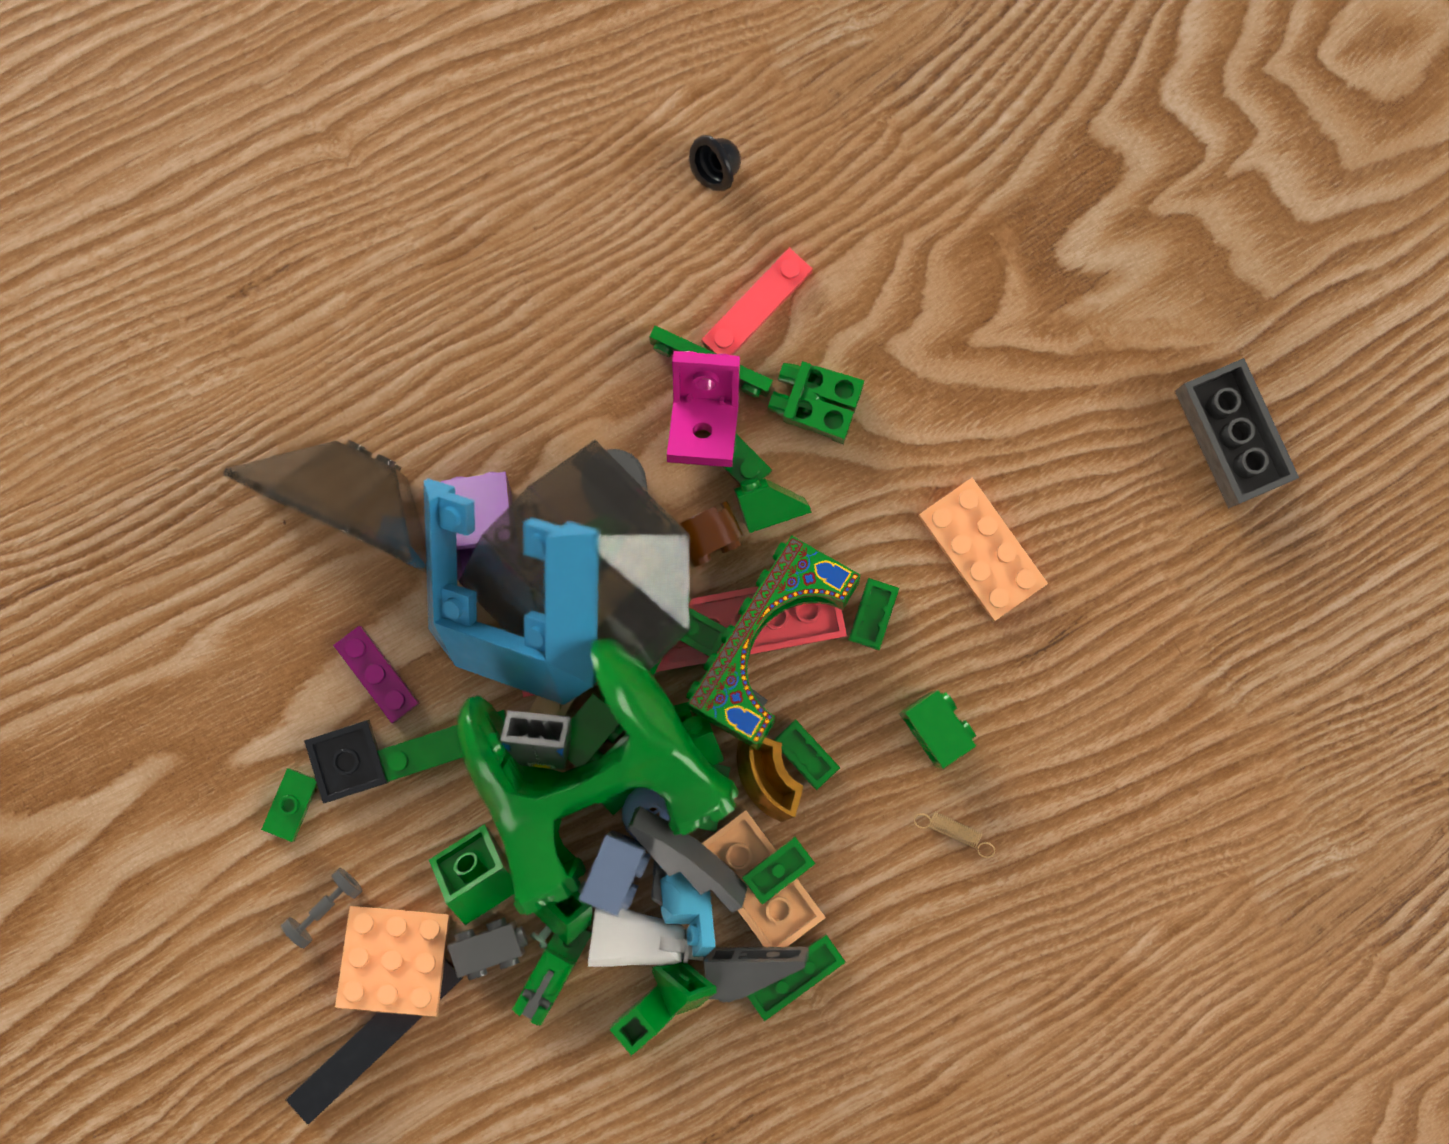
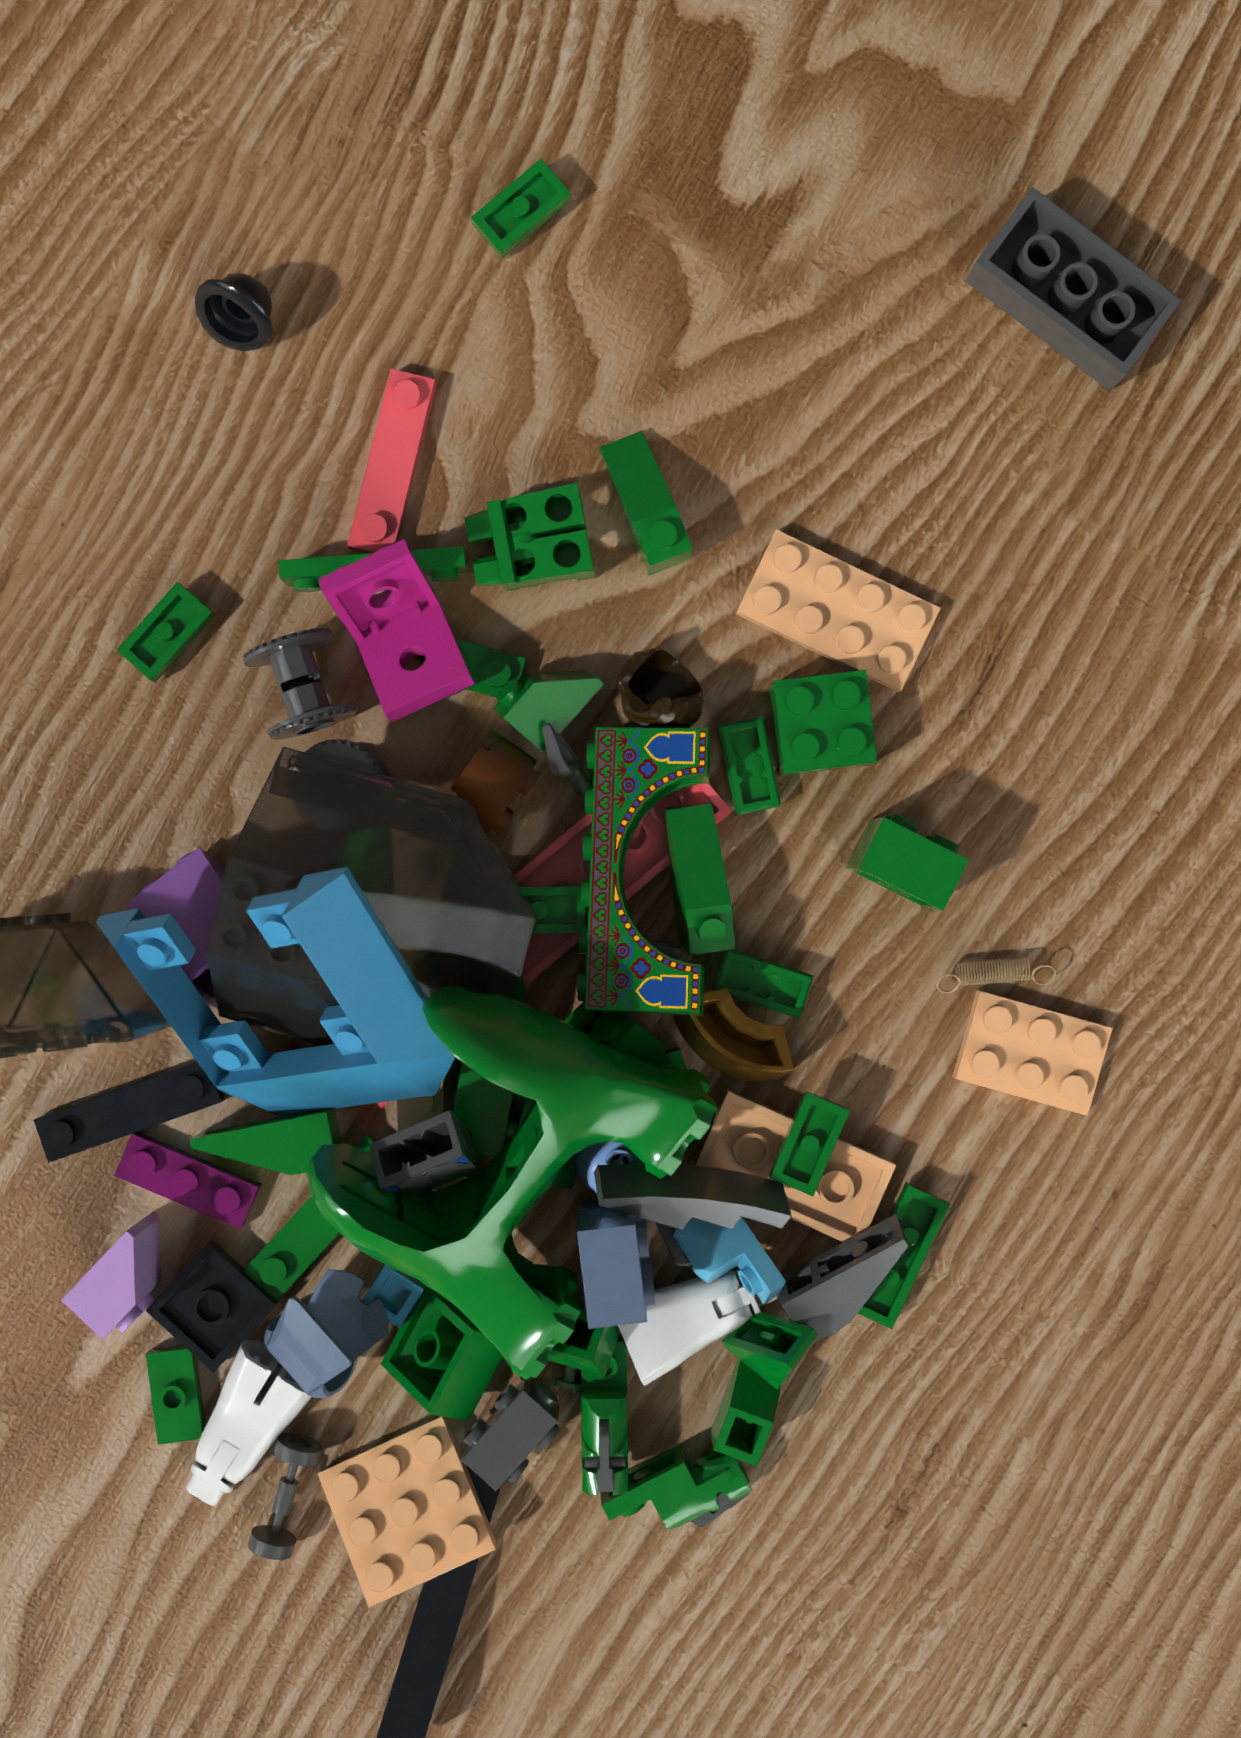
camera: 30 degrees left, 5 degrees up
(302, 711) = (121, 1281): none -> lavender slope
(332, 842) = (247, 1419): none -> white piece
(364, 609) = (126, 1111): none -> black plate
(408, 818) = (324, 1337): none -> sand blue piece
(445, 682) = (274, 1143): none -> green slope
(463, 819) = (397, 1292): none -> dark azure plate
(560, 329) = (166, 632): none -> green plate
(573, 1049) = (681, 1490): none -> green plate
(625, 407) = (299, 682): none -> dark grey hose
(760, 545) = (564, 761): none -> dark grey hand
(802, 666) = (698, 880): none -> green slope
(843, 535) = (659, 691): none -> dark brown hair
(900, 416) = (647, 503): none -> green slope
(924, 196) = (521, 208): none -> green plate
(933, 613) = (822, 723): none -> green brick
(952, 896) = (1032, 1052): none -> light nougat plate

